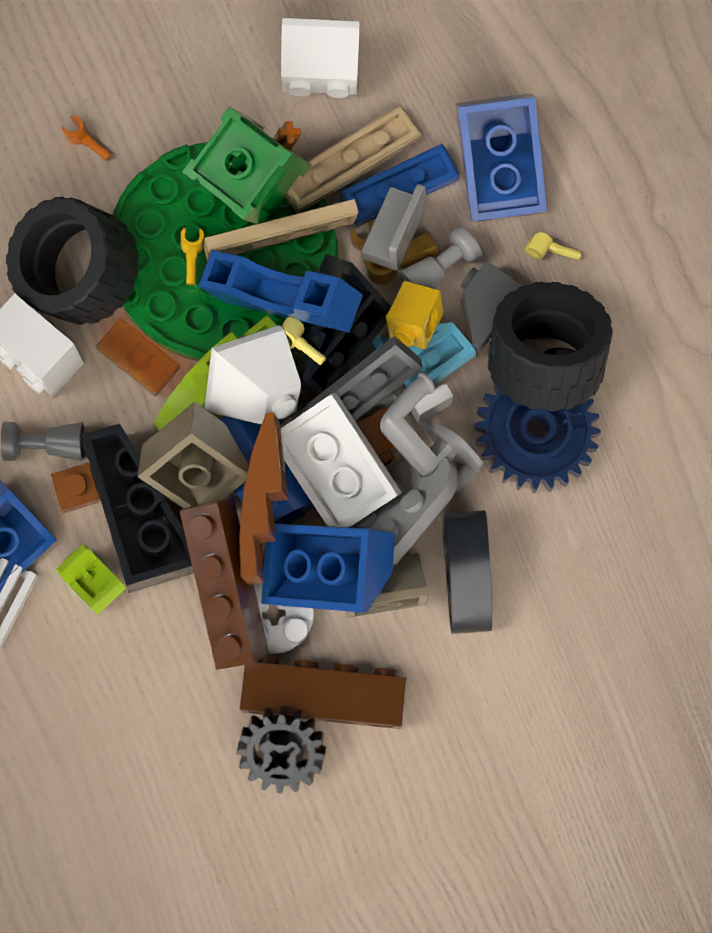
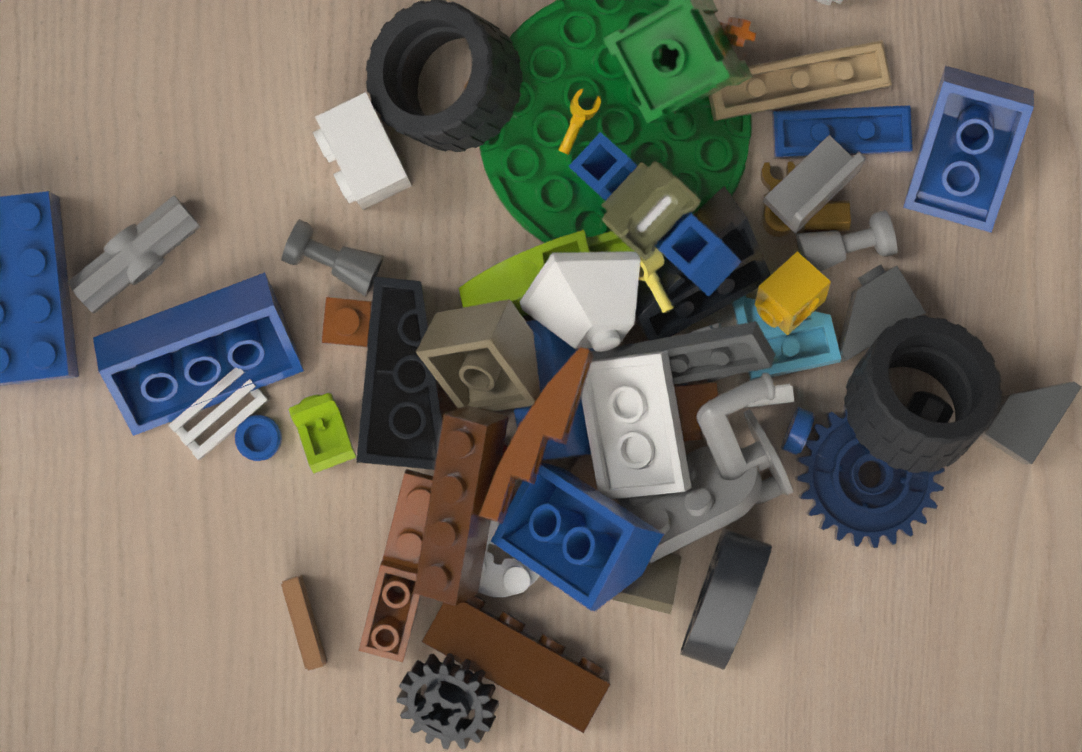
camera: 25 degrees right, 10 degrees up
(41, 608) = (258, 438): none -> blue tile
(138, 357) = (472, 206): clear orange plate -> none
(138, 738) = (304, 622): none -> medium nougat tile
(203, 684) = (393, 598): none -> dark orange slope
(272, 282) = (647, 207): none -> olive piece
(283, 229) = (687, 135): tan tile -> none
(467, 420) = (798, 431): none -> blue tile
(541, 243) = (968, 266): light yellow hand -> none
(639, 336) = (1029, 419): none -> dark grey slope

